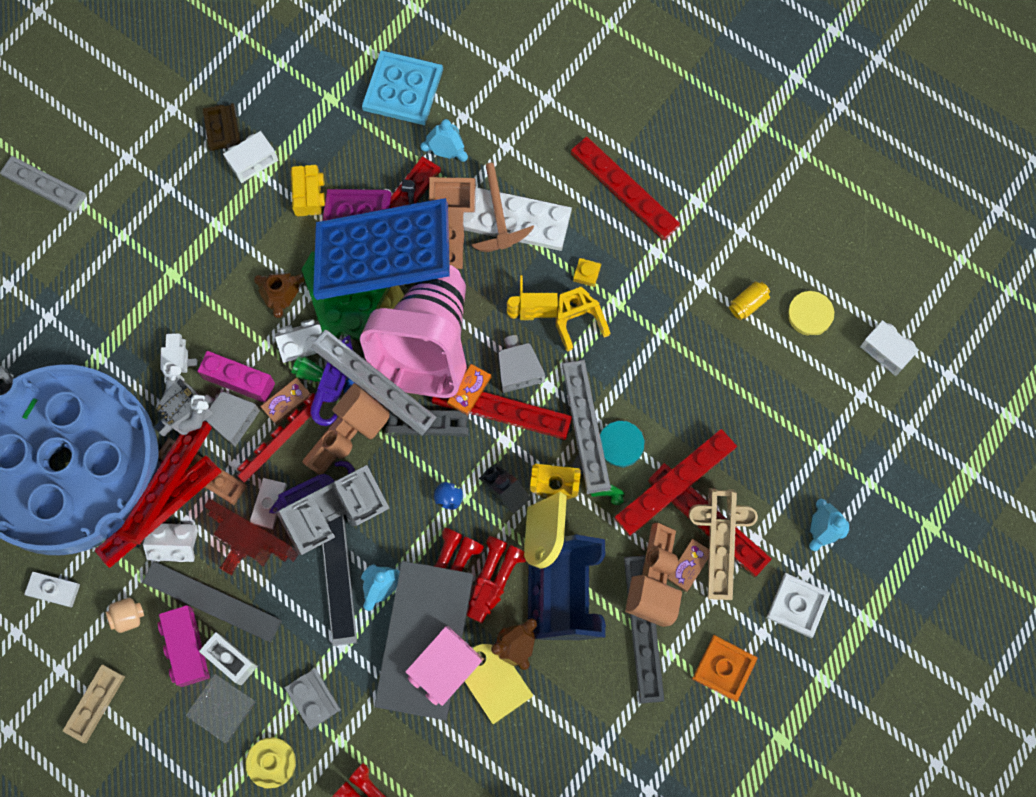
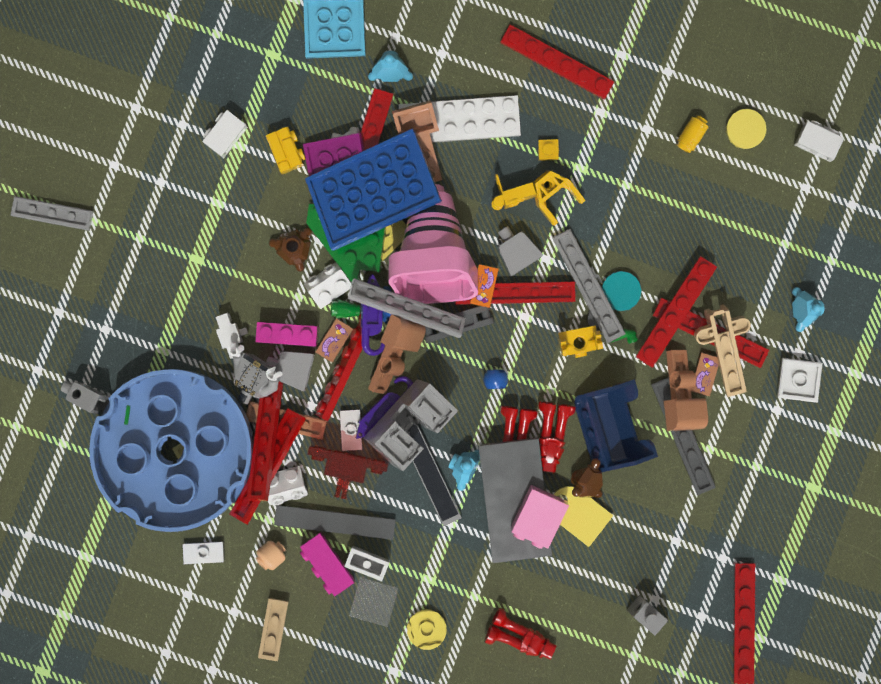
camera: 20 degrees left, 15 degrees up
(221, 126) = (188, 113): dark brown plate -> none
(312, 699) = (442, 571): light grey plate -> none
(409, 187) = (374, 122): black hand -> none
(504, 239) = (470, 144): nougat piece -> none
(505, 488) = (538, 358): black slope -> none
(545, 530) = (584, 386): light yellow tile -> none
(724, 668) = (755, 447): orange tile -> none

